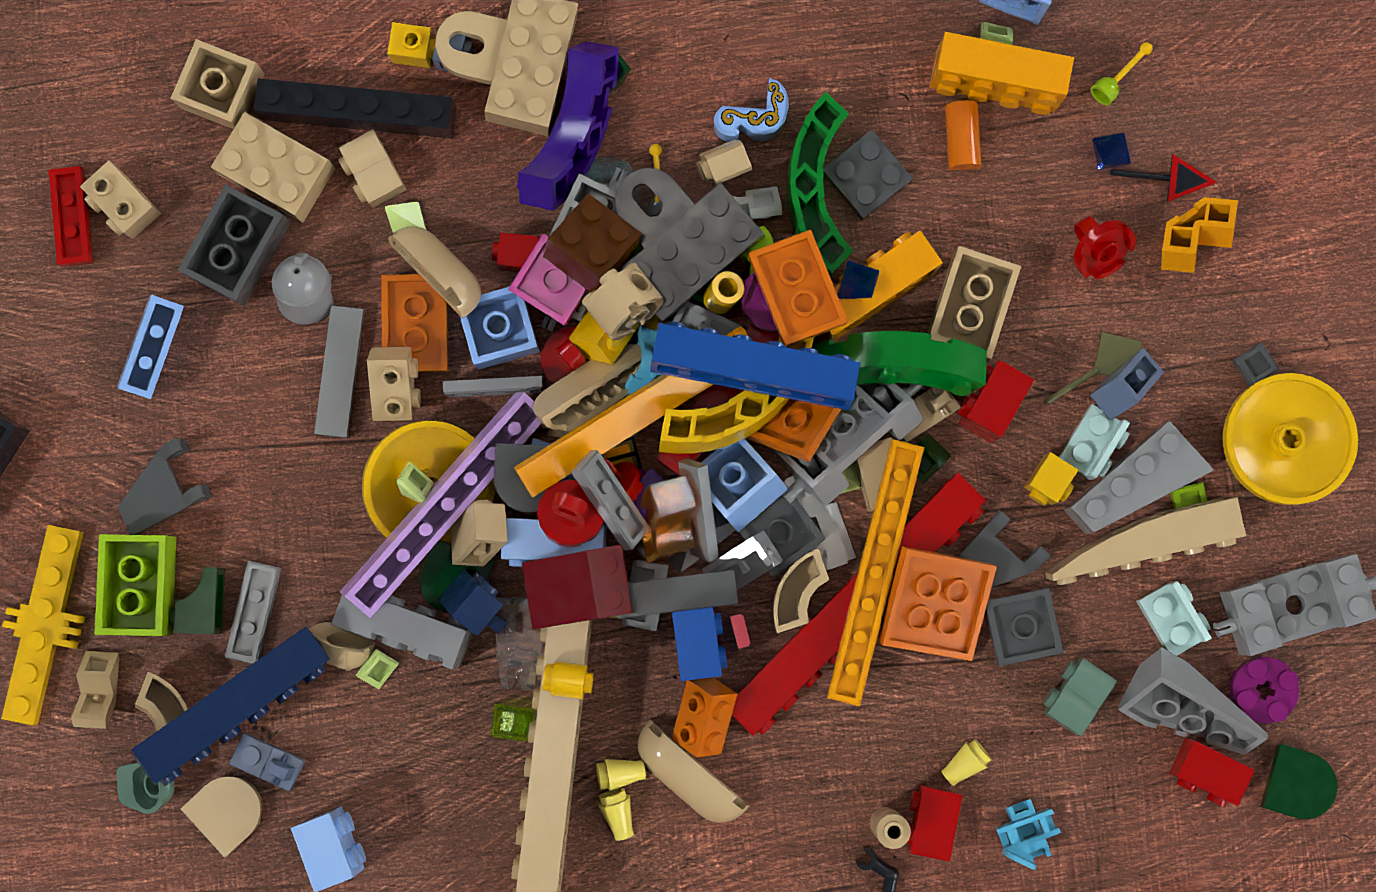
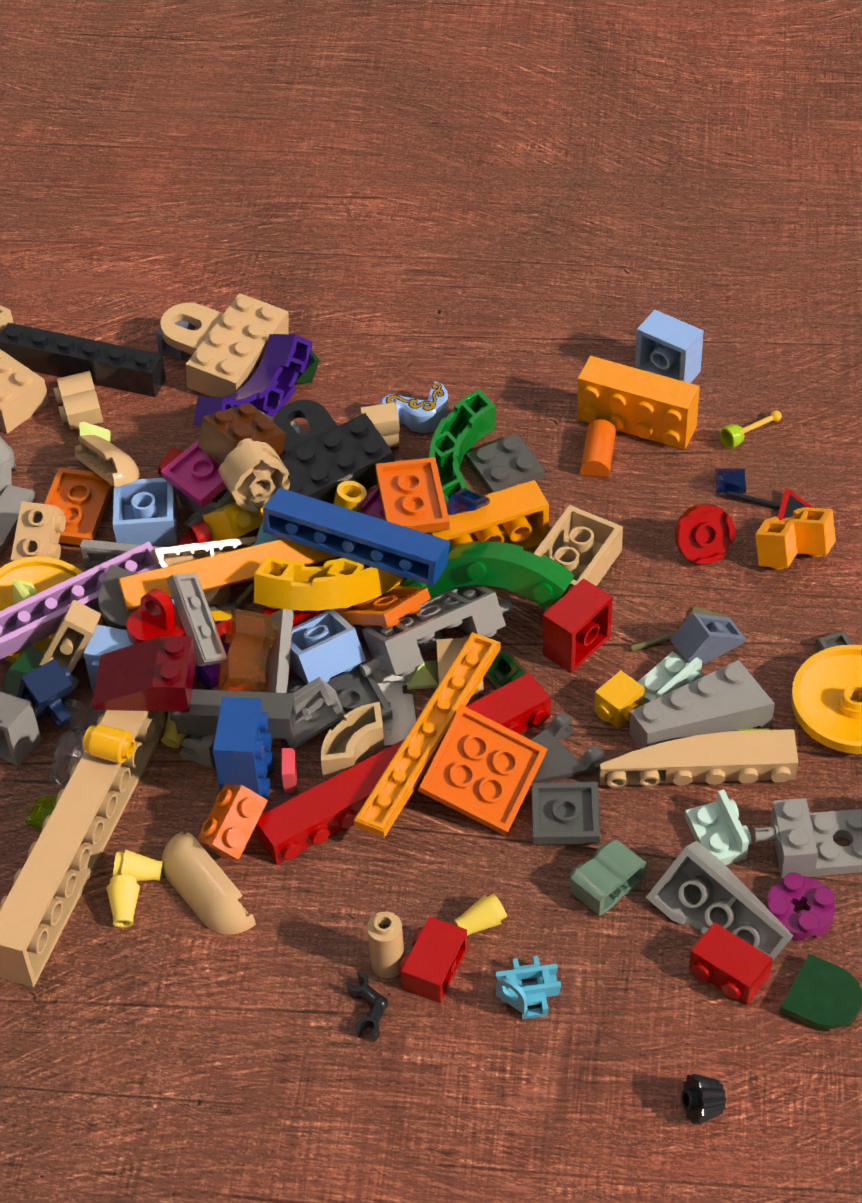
camera: 15 degrees right, 35 degrees down
(411, 45) = (140, 328): yellow brick -> none
(933, 406) = (520, 635): tan hinge -> none

